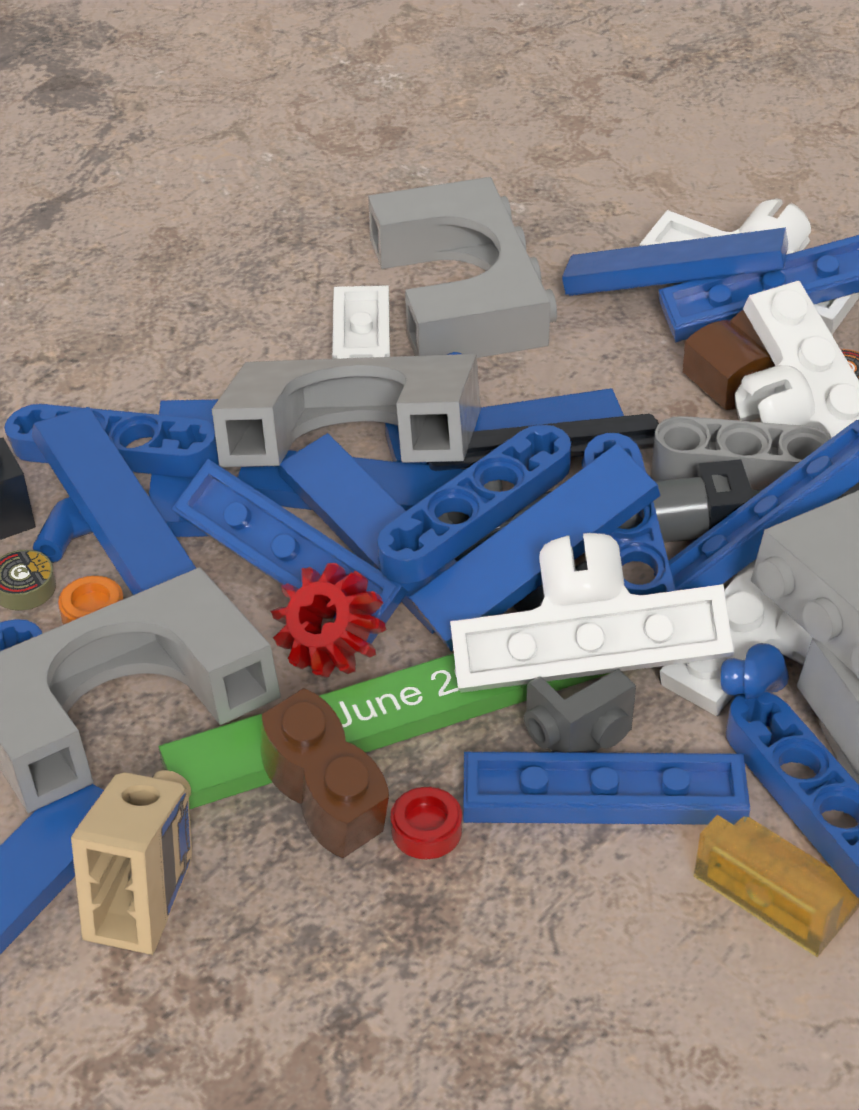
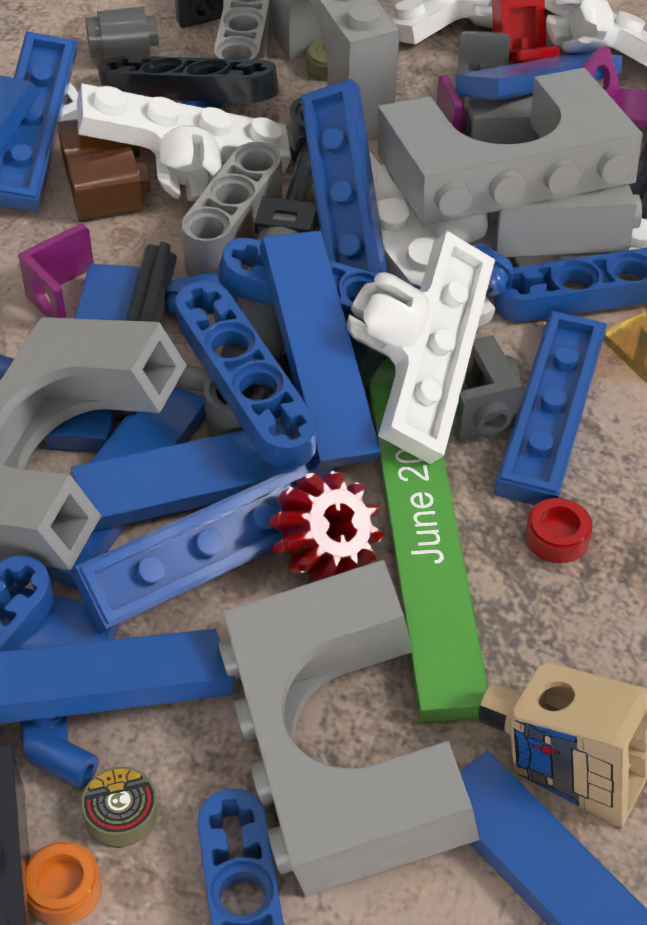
camera: 75 degrees left, 5 degrees up
(87, 596) = (187, 745): orange tile -> none
(315, 766) = (520, 570): reddish brown brick -> none
(584, 361) = (53, 264): none -> magenta bracket

